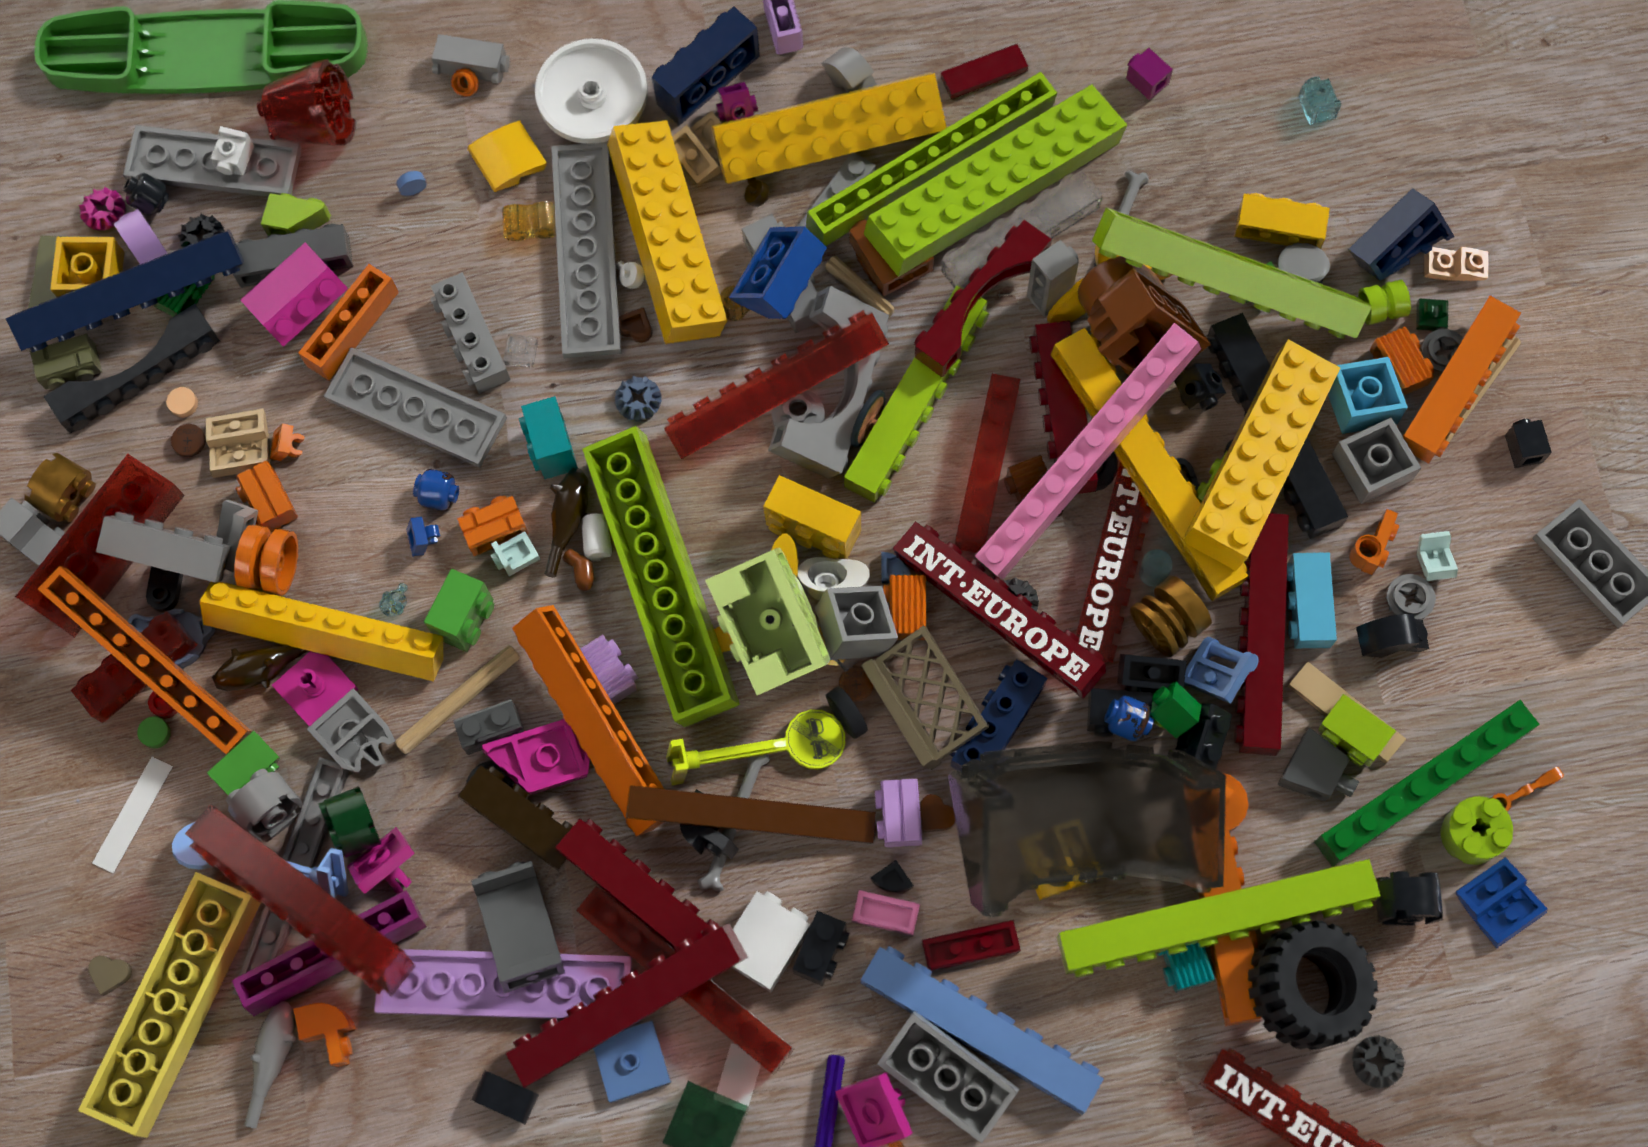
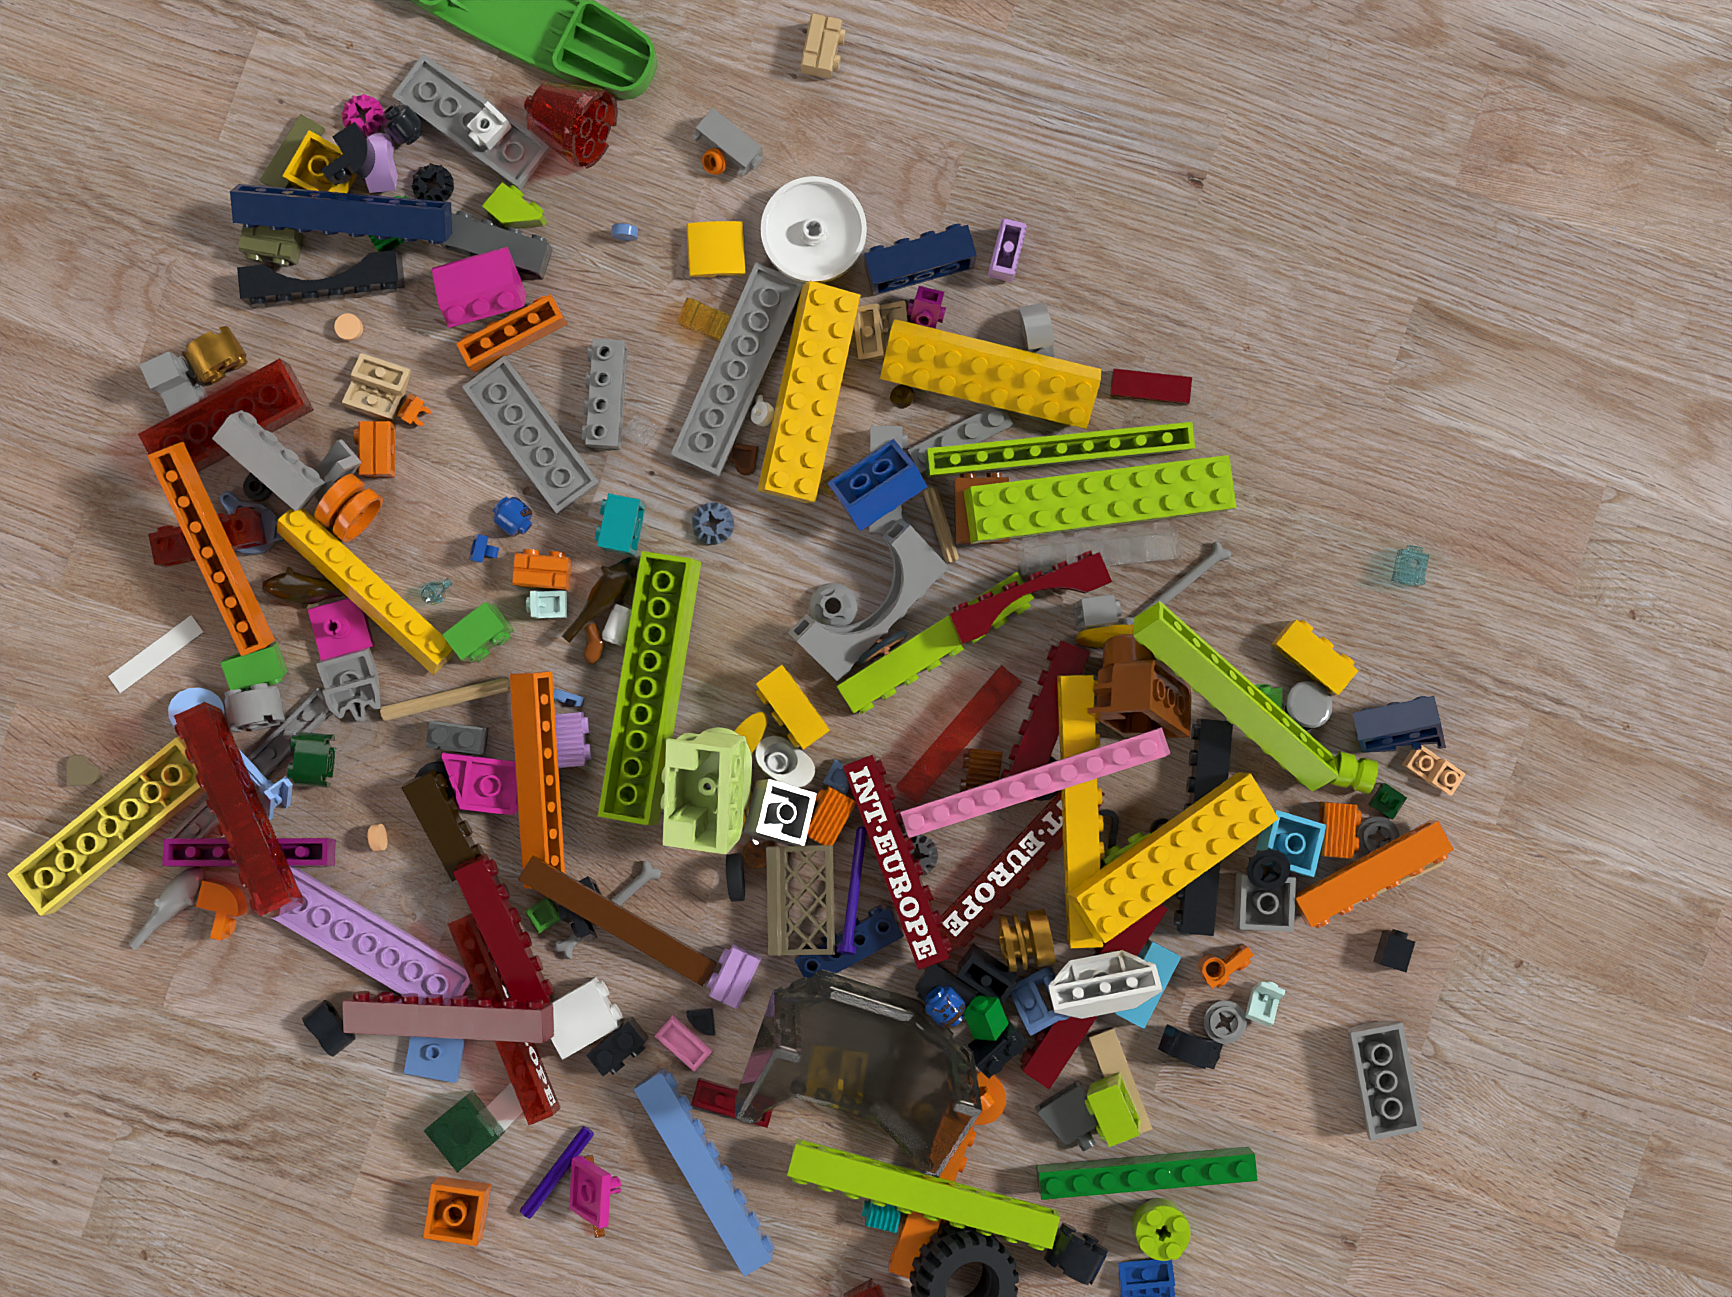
camera: 25 degrees right, 15 degrees up
(115, 234) = (357, 155): none -> black brick
(153, 732) = (200, 597): bright green tile -> none
(188, 440) = (338, 363): reddish brown piece -> none
(383, 863) = (322, 804): dark pink tile -> none
(457, 872) = (377, 837): none -> light nougat tile
(518, 926) = (401, 907): dark grey panel -> none
(583, 631) = (564, 696): none -> medium blue tile
(671, 860) = (543, 914): none -> bright green tile
(775, 384) = (824, 581): clear red brick -> none
(812, 740) = (698, 880): neon yellow piece -> none
(936, 815) = (761, 988): reddish brown tile -> none
(948, 1076) = (659, 1194): light grey brick -> none
(997, 714) = (847, 947): none -> dark purple bar
(1148, 73) = (1283, 466): magenta brick -> none
(1149, 573) = (1035, 885): clear light blue brick -> none
(1200, 386) = (1165, 768): black brick -> none
(1274, 611) = (1103, 985): none -> white wedge
(1369, 409) = (1269, 880): none -> black gear
(1546, 779) = (1239, 1217): orange piece -> none

